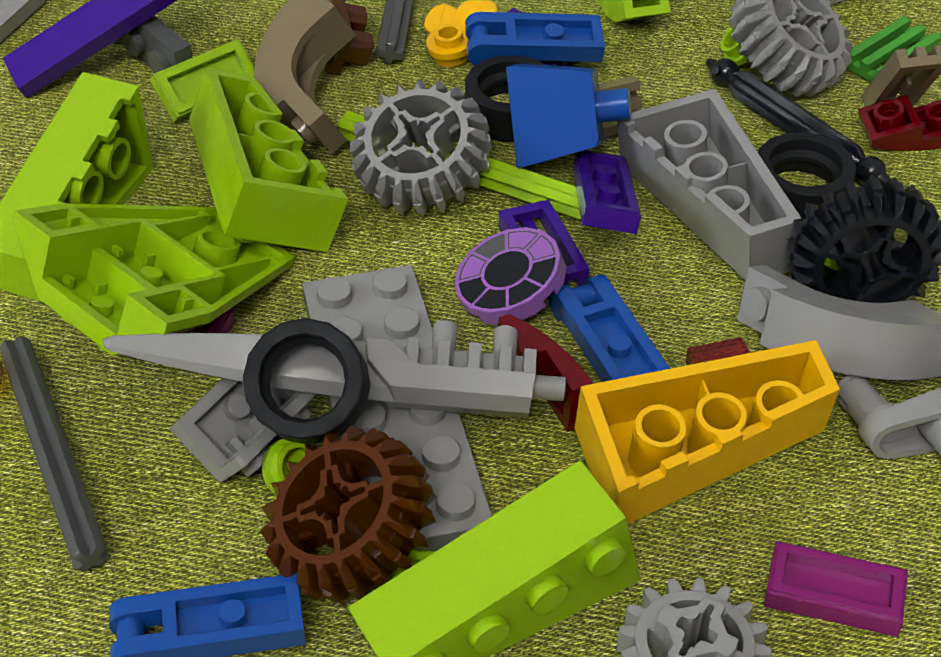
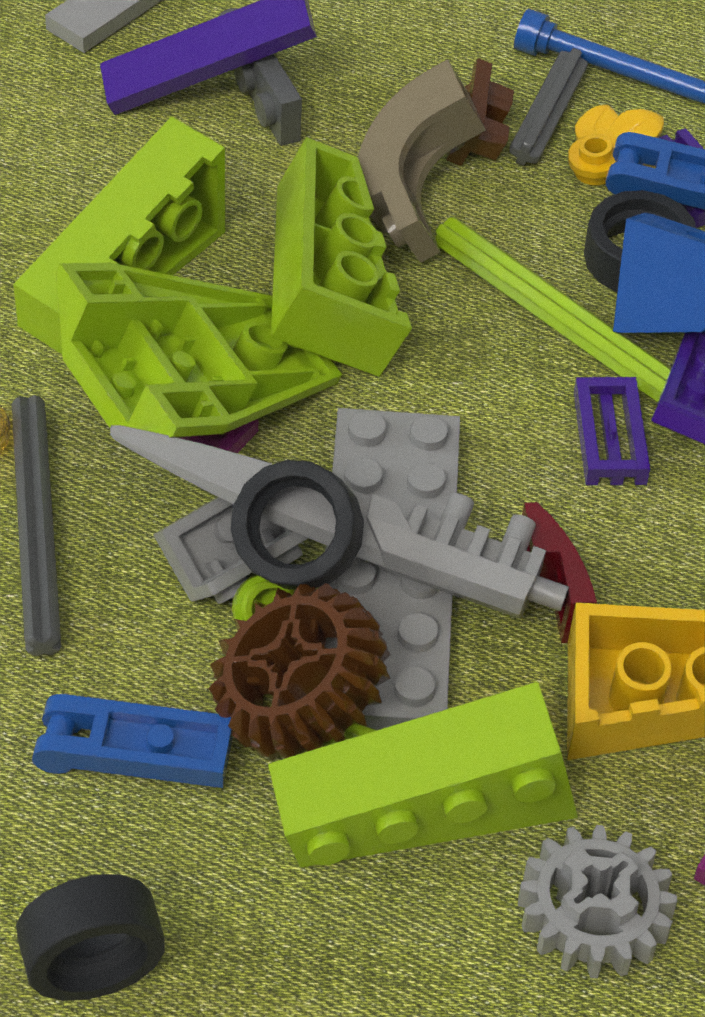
camera: 15 degrees right, 5 degrees up
(180, 83) = (280, 139): lime tile -> none
(410, 173) = (541, 262): light grey gear -> none
(510, 274) = (559, 455): tile -> none
(606, 329) = (641, 545): blue plate -> none

